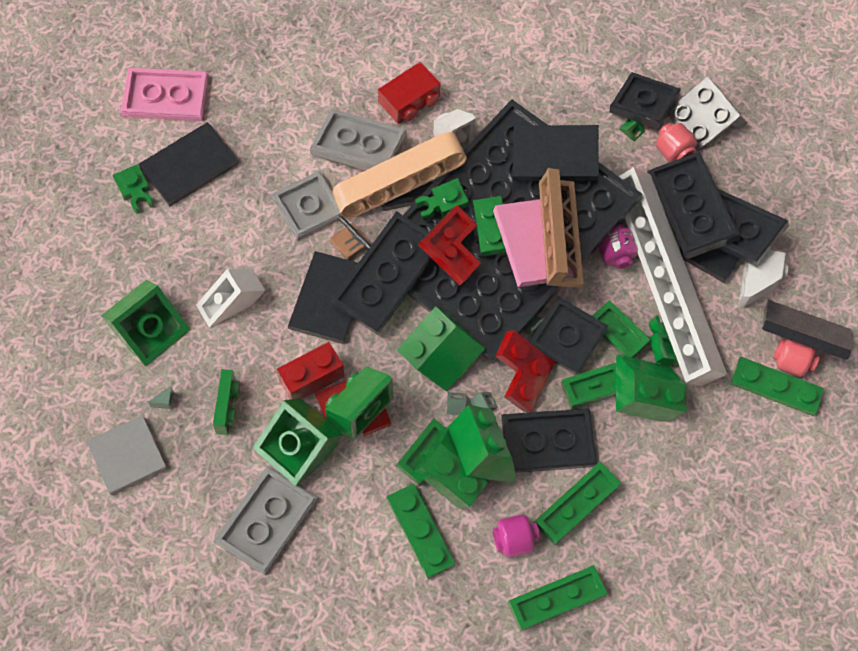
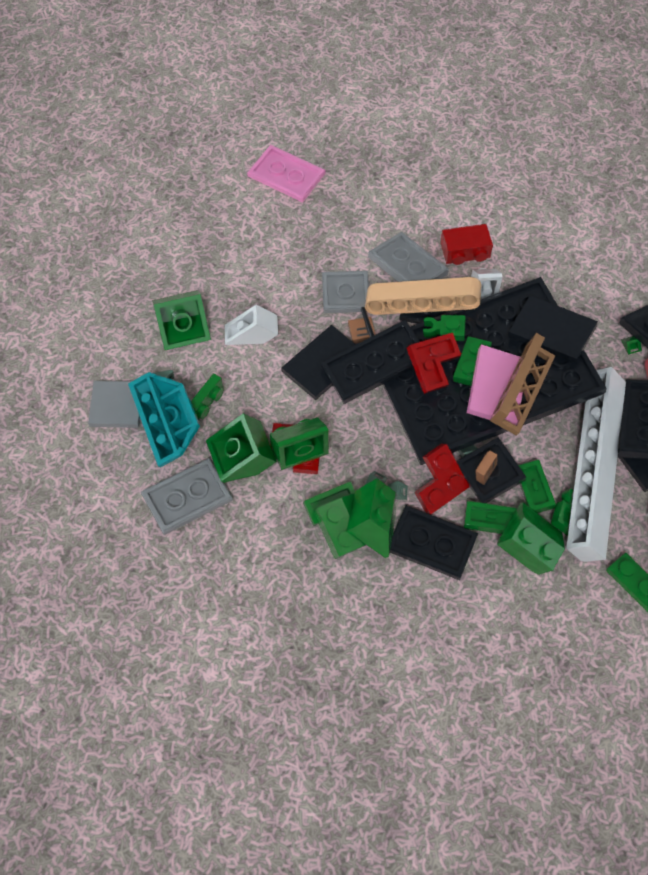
camera: 30 degrees right, 5 degrees down
(133, 185) = (227, 224): green plate -> none
(188, 164) = (275, 227): black tile -> none
(197, 444) = (164, 415): none -> teal wedge
(311, 372) = (277, 406): red brick -> none
(420, 531) = (295, 560): green plate -> none
(441, 348) = (384, 433): green slope -> none
(515, 536) = (365, 598): dark pink head -> none
(557, 598) = (371, 661): green plate -> none
(566, 335) = (486, 467): none -> nougat tile
(577, 503) = (428, 598): green plate -> none
(619, 248) = (568, 424): dark pink head -> none

